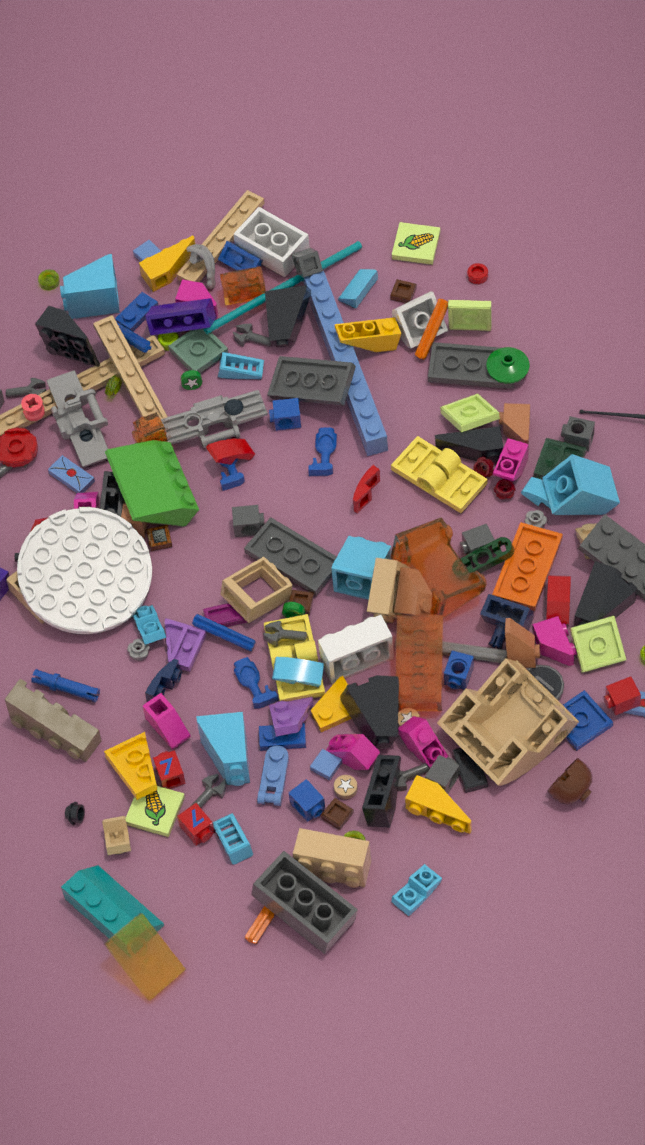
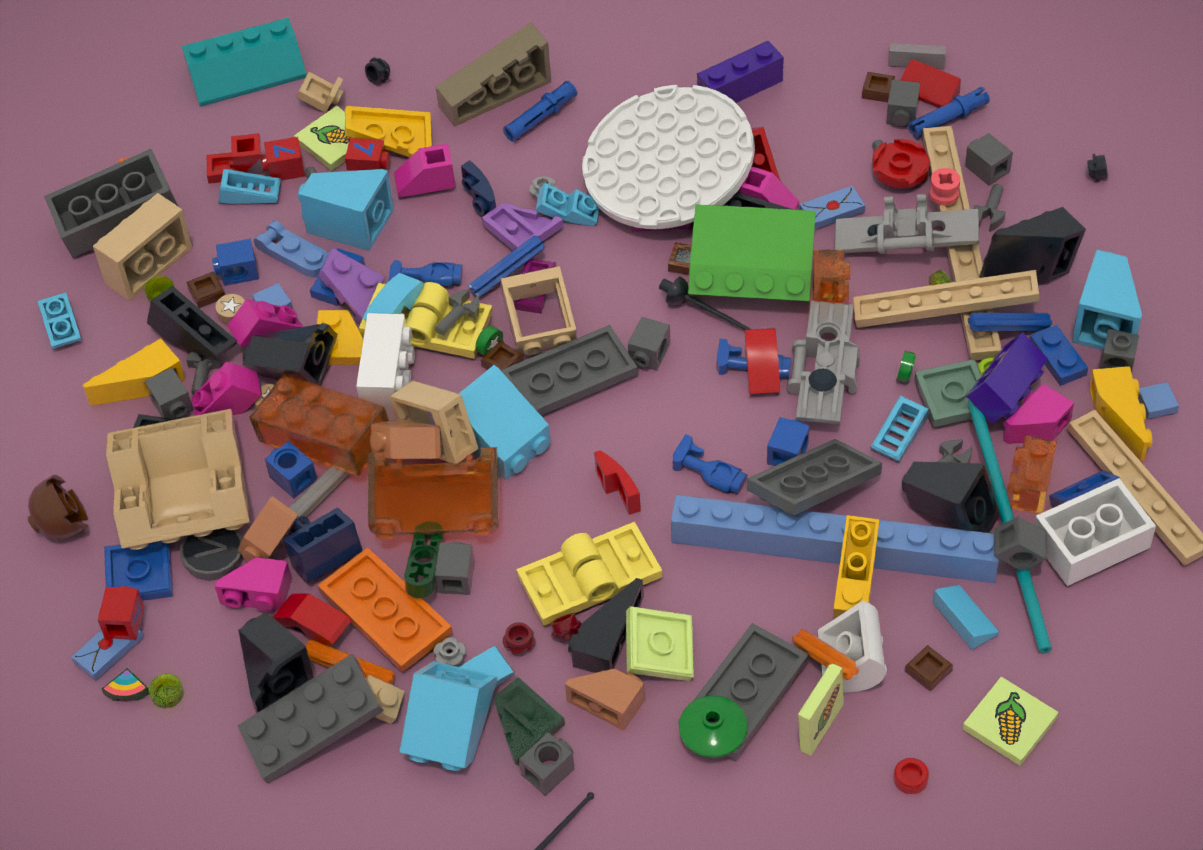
camera: 115 degrees right, 5 degrees down
(48, 279) = (1165, 284): clear neon green tile -> none
(126, 276) = (1119, 349): none -> dark grey brick
(144, 956) = (162, 60): clear yellow tile -> none
(194, 525) = (678, 292): none -> black sword
(200, 253) = (1105, 433): light grey piece -> none
(212, 856) = (243, 155): none -> red slope
(512, 460) = (546, 654): dark pink slope -> none
(575, 567) = (330, 656): none -> orange axle
(598, 644) = (214, 626): yellowish green tile -> none

